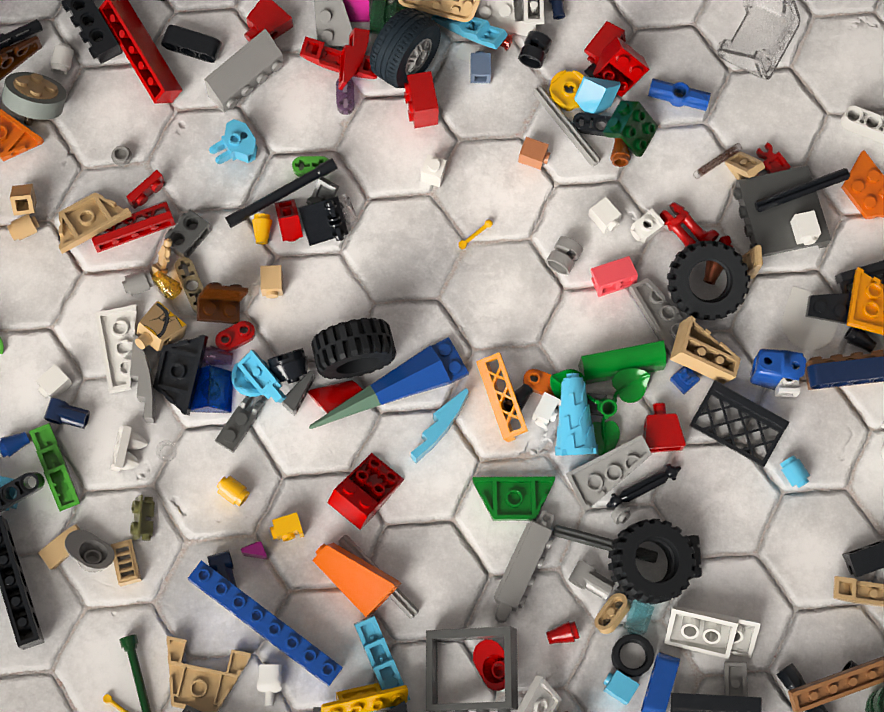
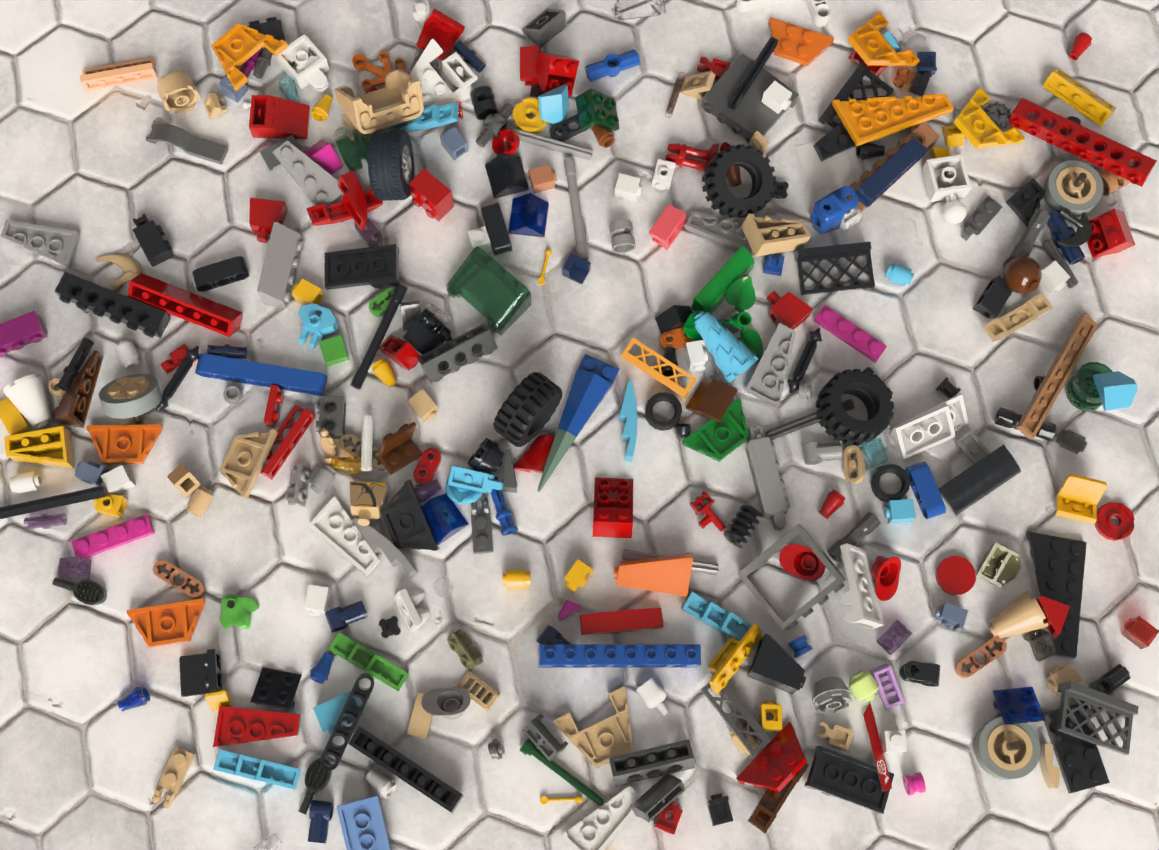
camera: 35 degrees left, 0 degrees up
(86, 108) = (178, 377): none -> black wheel
(96, 457) = (395, 630): none -> black plate
(100, 623) = (496, 749): none -> dark grey plate
(102, 93) = (177, 357): none -> red plate
(111, 279) = (300, 477): none -> light grey hinge
(144, 115) = (227, 351): none -> dark blue pin
(147, 645) = (543, 738): none -> dark grey hinge
(157, 155) = (261, 374): none -> blue beam
(198, 278) = (367, 442): none -> white axle
(234, 178) = (334, 350): none -> bright green piece
(250, 112) = (307, 293): none -> yellow brick
(265, 426) = (503, 514): none -> blue pin
(293, 595) = (621, 621): none -> red slope
(314, 122) = (362, 267): none -> black hinge
(347, 251) = (447, 352): none -> dark grey brick
(406, 221) = (490, 290): none -> clear green windscreen
(446, 562) = (710, 515): none -> red arm
(458, 170) = (496, 229): none -> black beam
(467, 592) = (741, 525): none -> black piece
(477, 422) = (667, 397): none -> black tyre
(482, 467) = (683, 429): none -> black hinge
(496, 179) = (528, 216): none -> clear blue slope
(500, 255) = (576, 268): none -> dark blue panel
(505, 129) = (506, 175): none -> black slope
(522, 238) = (570, 171): none -> light grey piece
(526, 99) = (506, 142): none -> red hair
(529, 76) = (494, 124): none -> dark grey axle
(530, 459) = (712, 399): none -> reddish brown slope
(553, 361) = (673, 318): none -> black slope
(577, 677) = (864, 527): none -> dark grey axle
(646, 18) = (545, 26): none -> dark grey slope
(705, 493) = (849, 333): none -> dark pink plate
(745, 320) = (782, 193): none -> black plate
(756, 609) = (948, 388): none -> black bush

